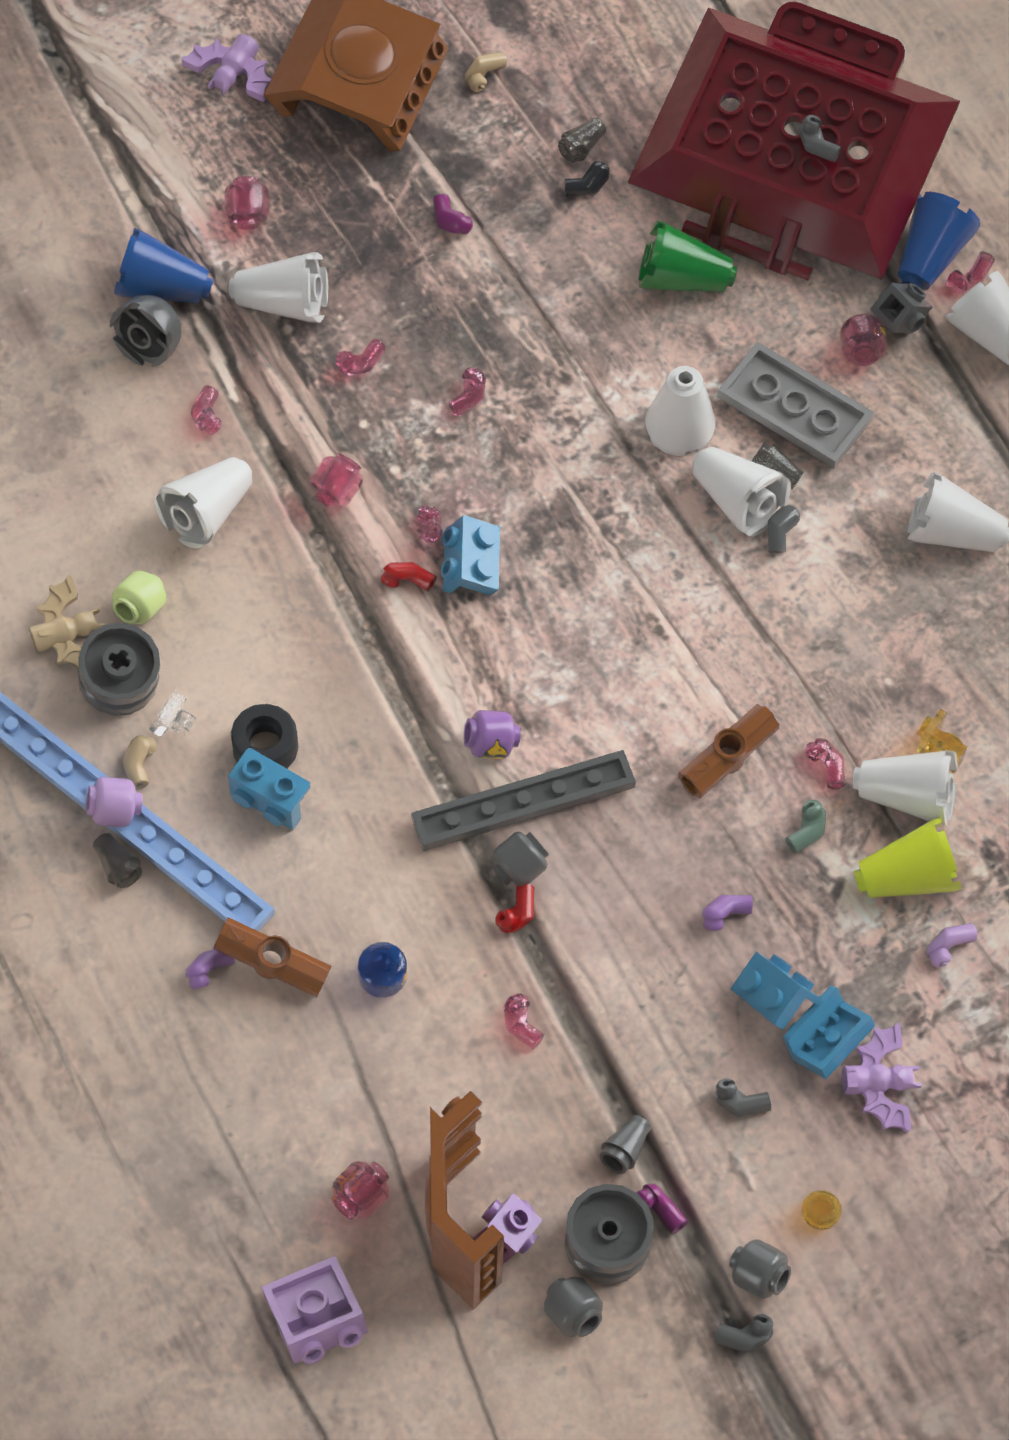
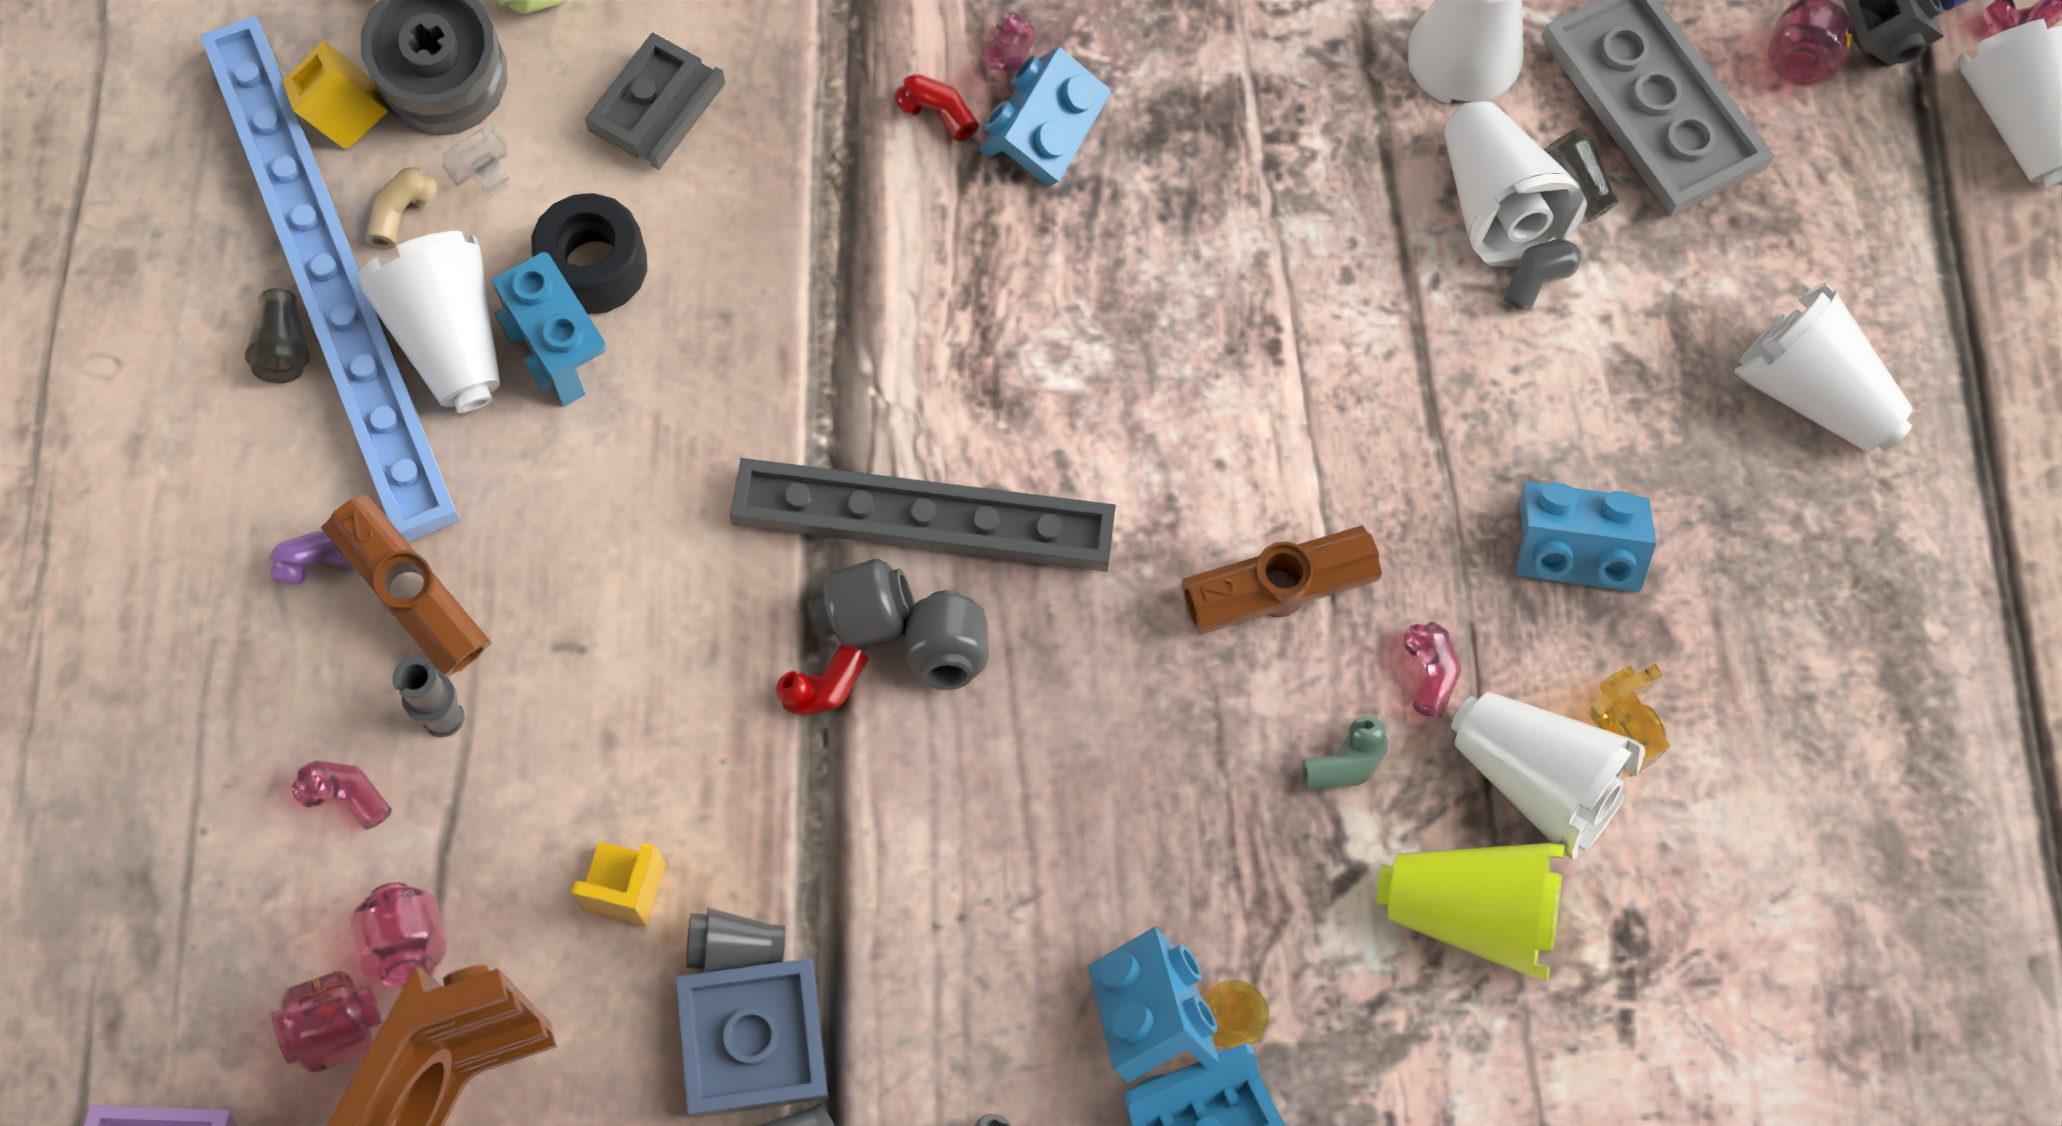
camera: 25 degrees right, 5 degrees up
(69, 715) = (334, 95): none -> yellow panel
(113, 802) = (304, 245): lavender head -> none
(206, 810) = (439, 315): none -> white cone
(250, 640) = (655, 101): none -> dark grey plate
(295, 1074) = (341, 782): none -> clear pink arm
(322, 1005) = (428, 696): none -> dark grey pin
(371, 1132) = (396, 932): none -> clear pink head
(382, 969) = (558, 681): clear blue head -> none
(471, 1056) = (621, 882): none -> yellow panel
(491, 734) = (928, 392): medium lavender head -> none
(517, 1020) = (724, 861): clear pink arm -> none
(543, 1059) = (731, 941): none -> dark grey cone
(572, 858) = (946, 640): none -> dark grey head
(580, 1099) = (751, 1038): none -> sand blue plate
(722, 907) = (1144, 825): medium lavender arm -> none
(820, 974) = (1239, 1013): none -> clear yellow plate
(872, 659) = (1585, 536): none -> dark azure bracket
(946, 939) = (1484, 1050): lavender arm -> none

